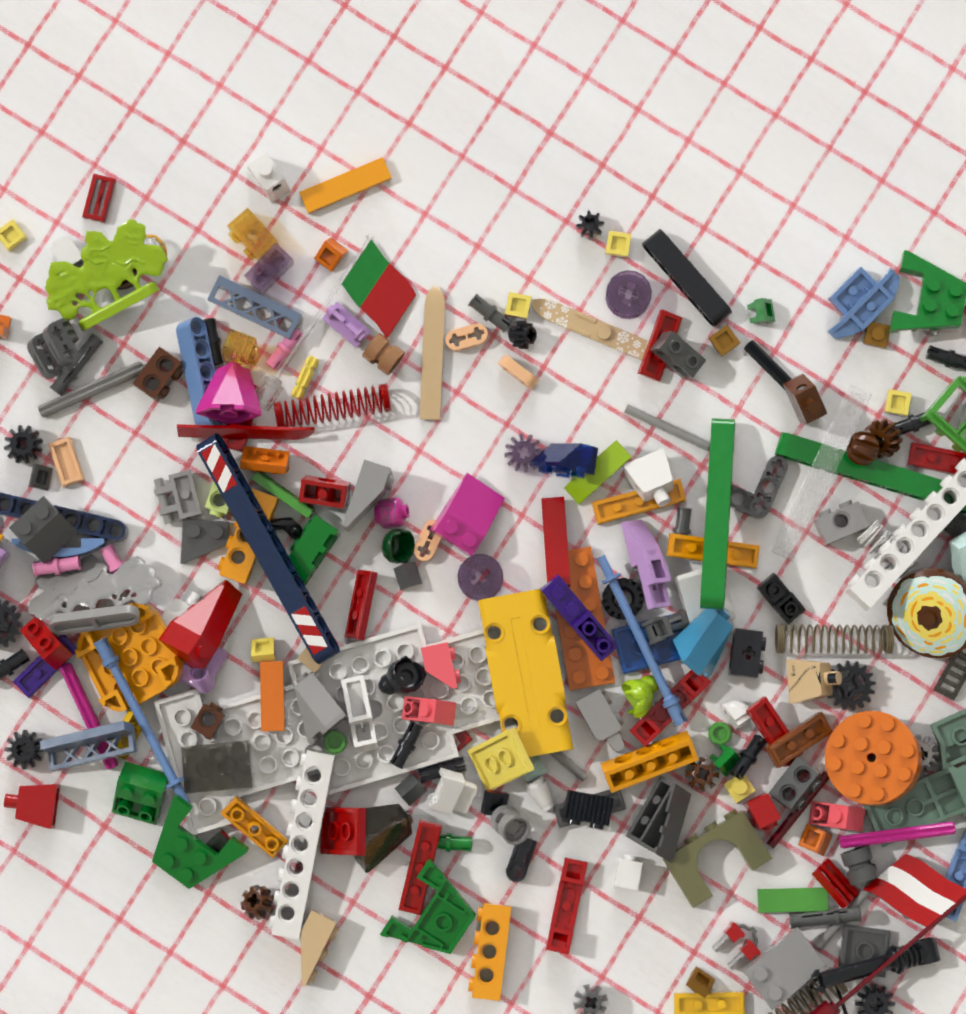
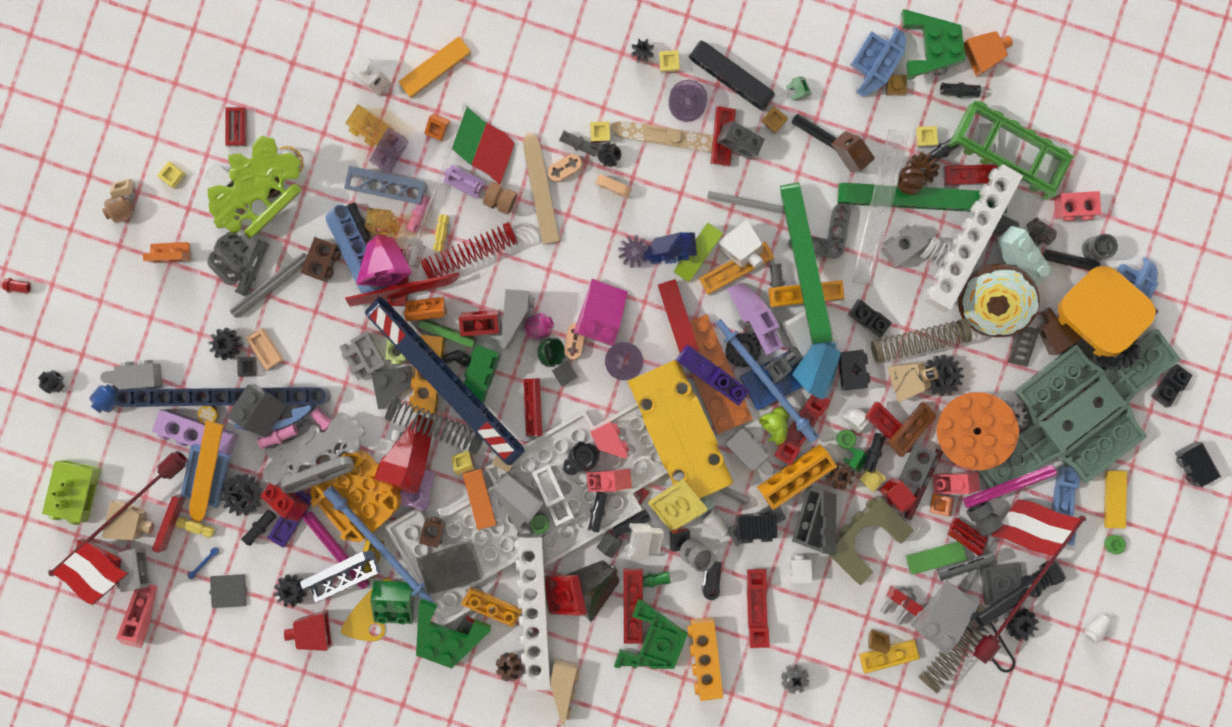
camera: 10 degrees left, 5 degrees up
(96, 805) = (360, 620): none -> yellow piece
(285, 629) = (474, 446): none -> dark grey piece

